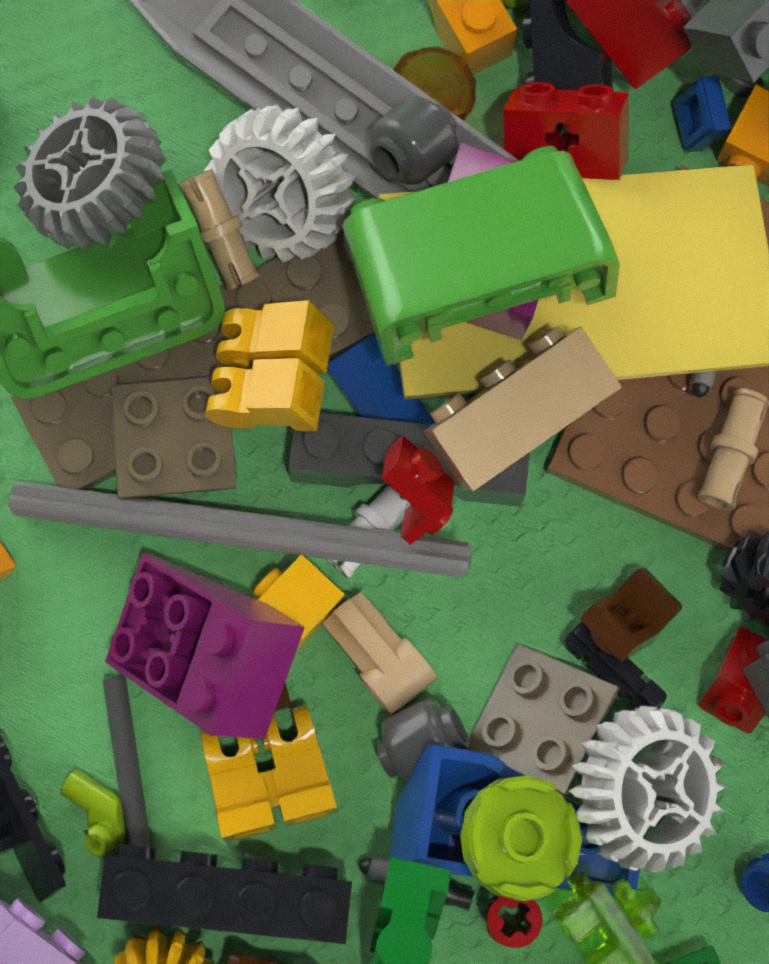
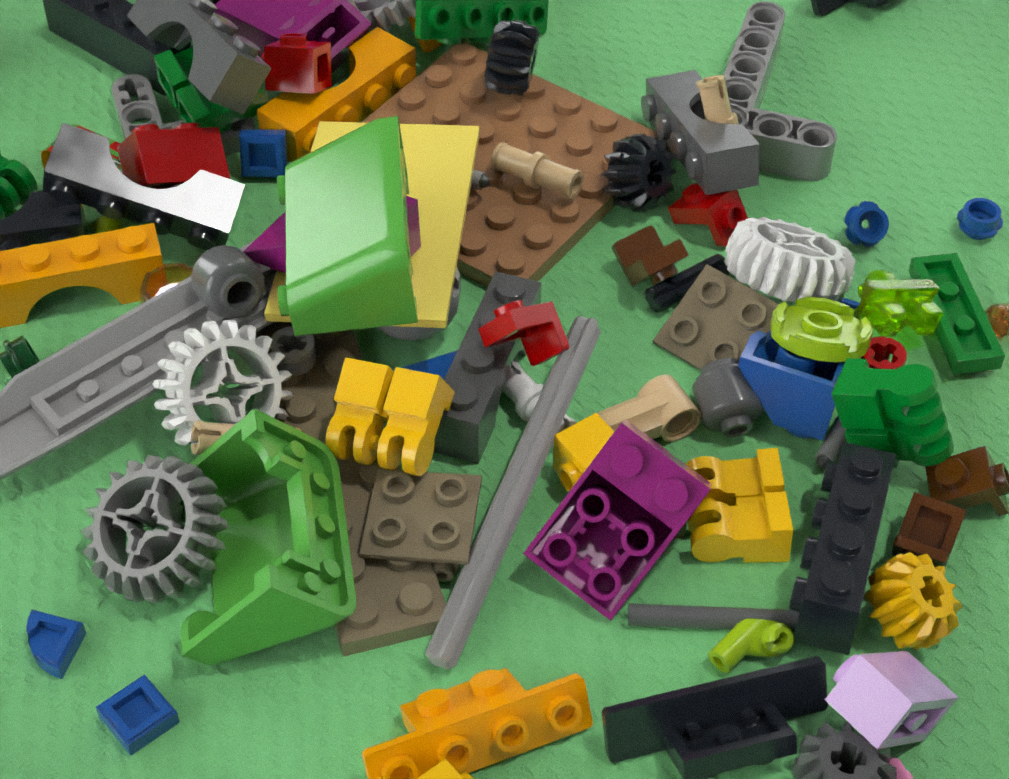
camera: 75 degrees left, 30 degrees down
(520, 406) = (479, 246): tan brick -> none
(594, 120) = (248, 201): red brick -> none

